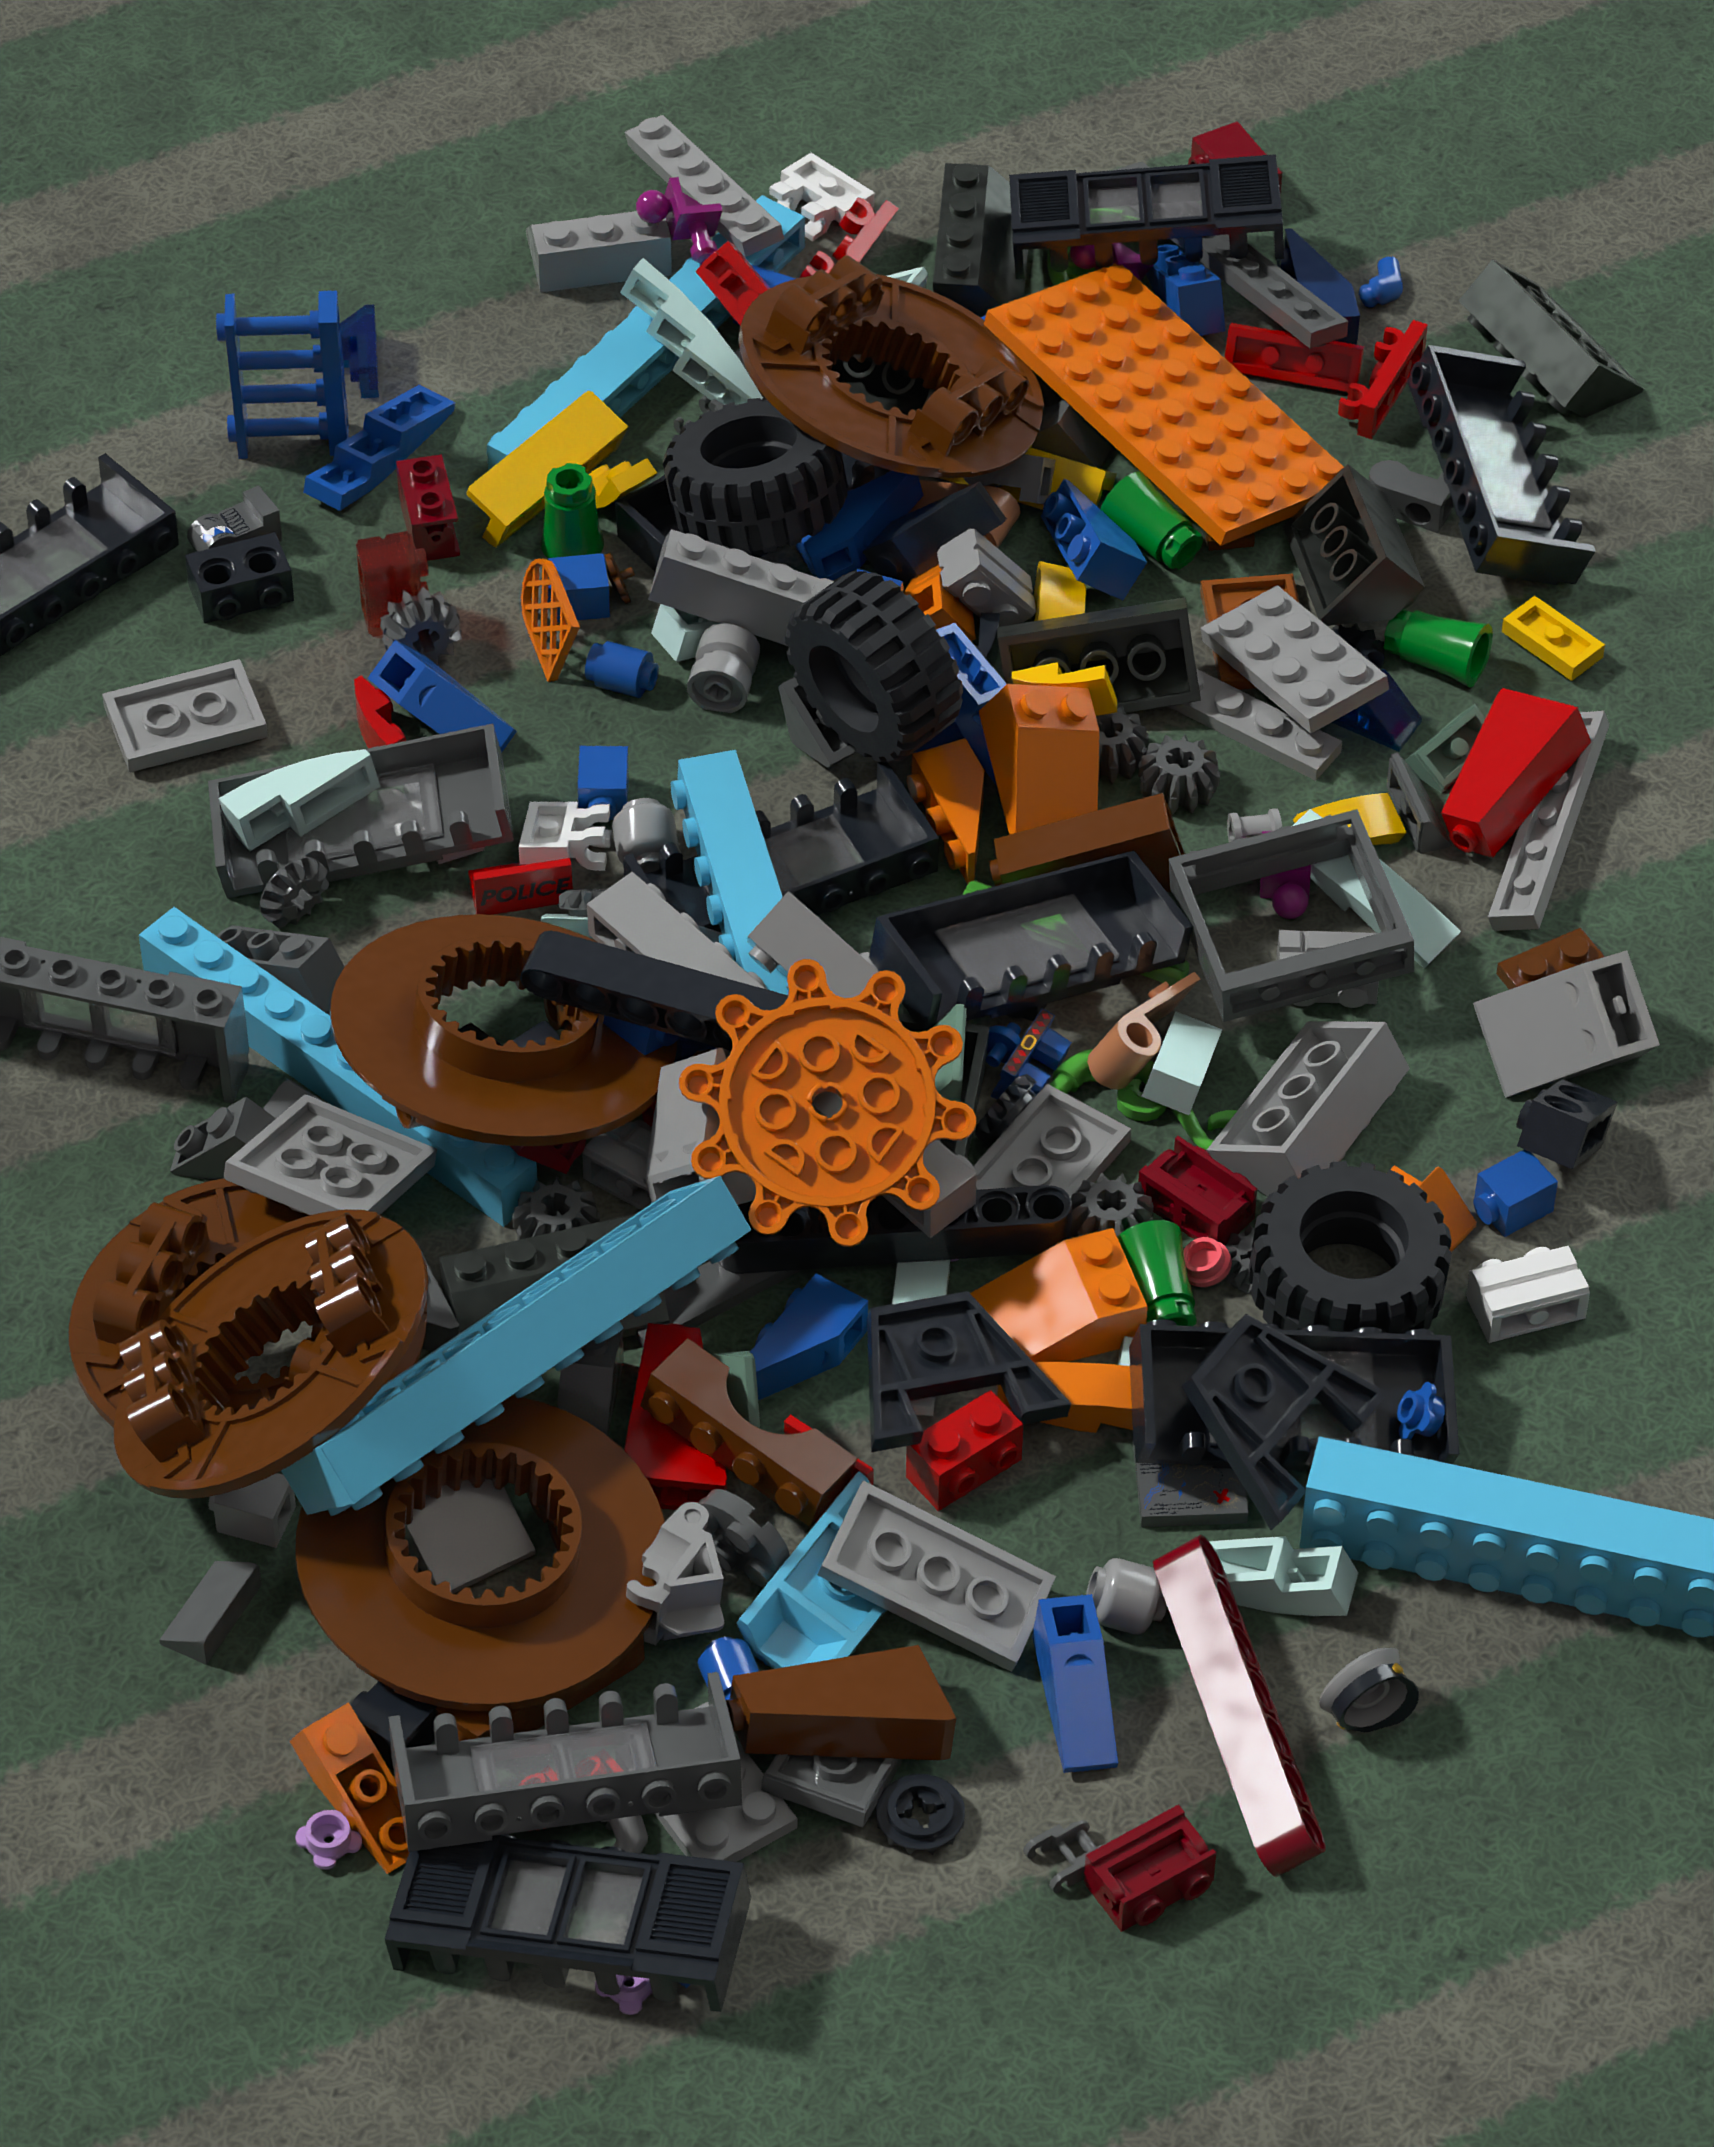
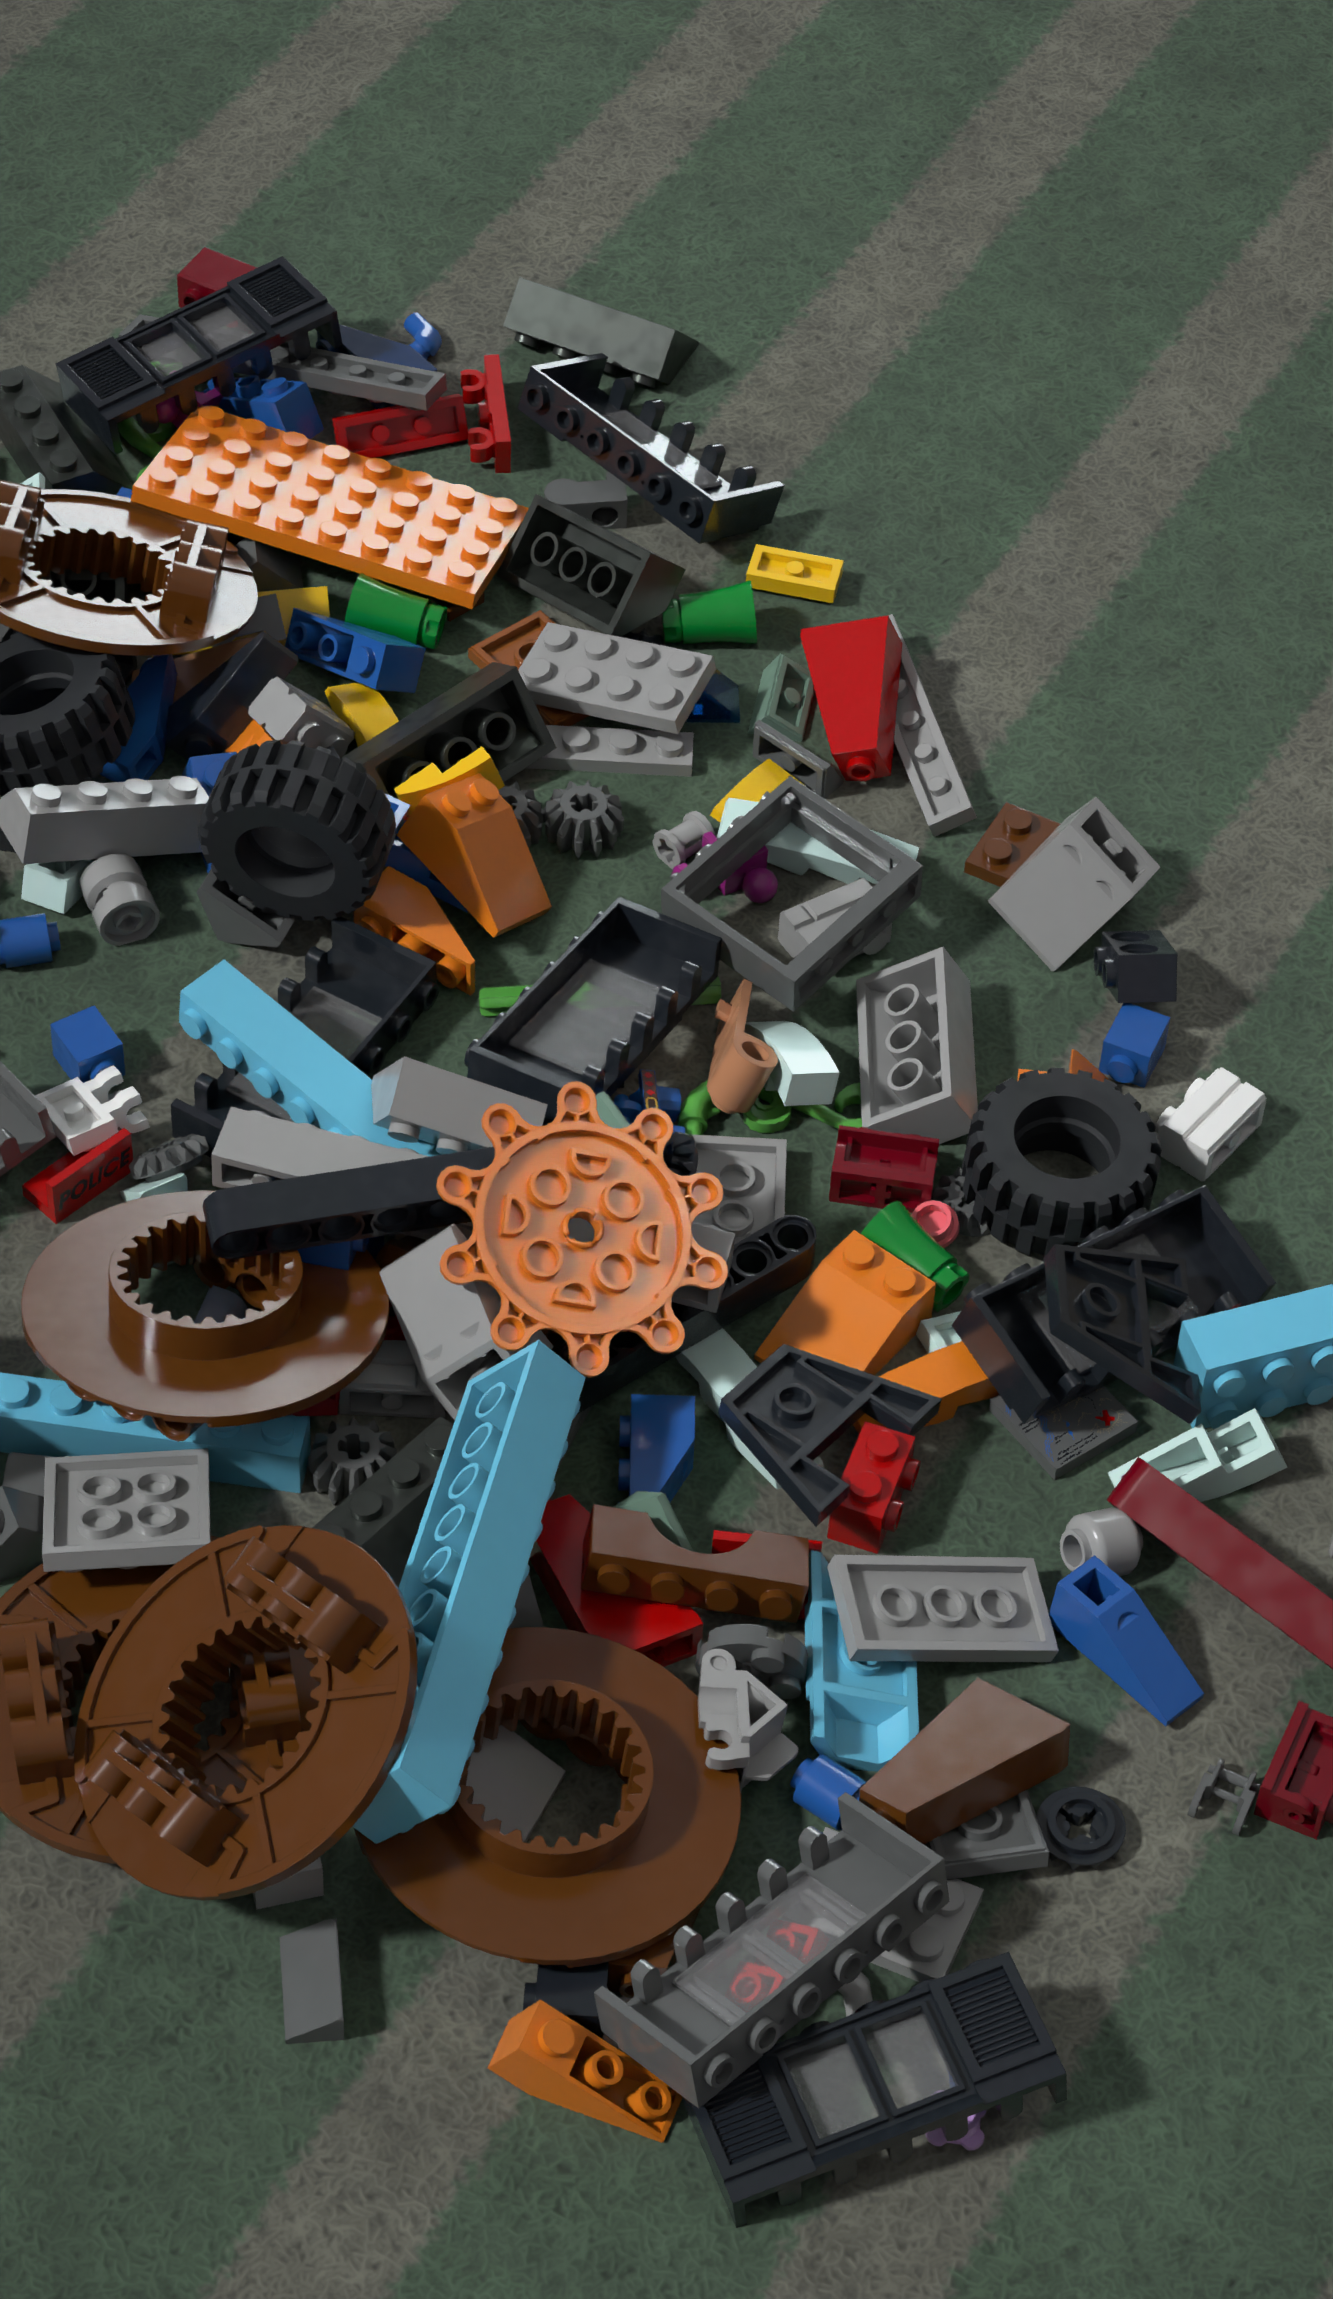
camera: 35 degrees left, 0 degrees up
(327, 1824) = (589, 2123): lavender plate -> none
(642, 830) = (161, 1076): light grey head -> none
(1109, 1206) = (831, 1213): dark grey gear -> none
(1132, 826) = (566, 910): reddish brown slope -> none
(1420, 1412) = (1230, 1262): blue plate -> none

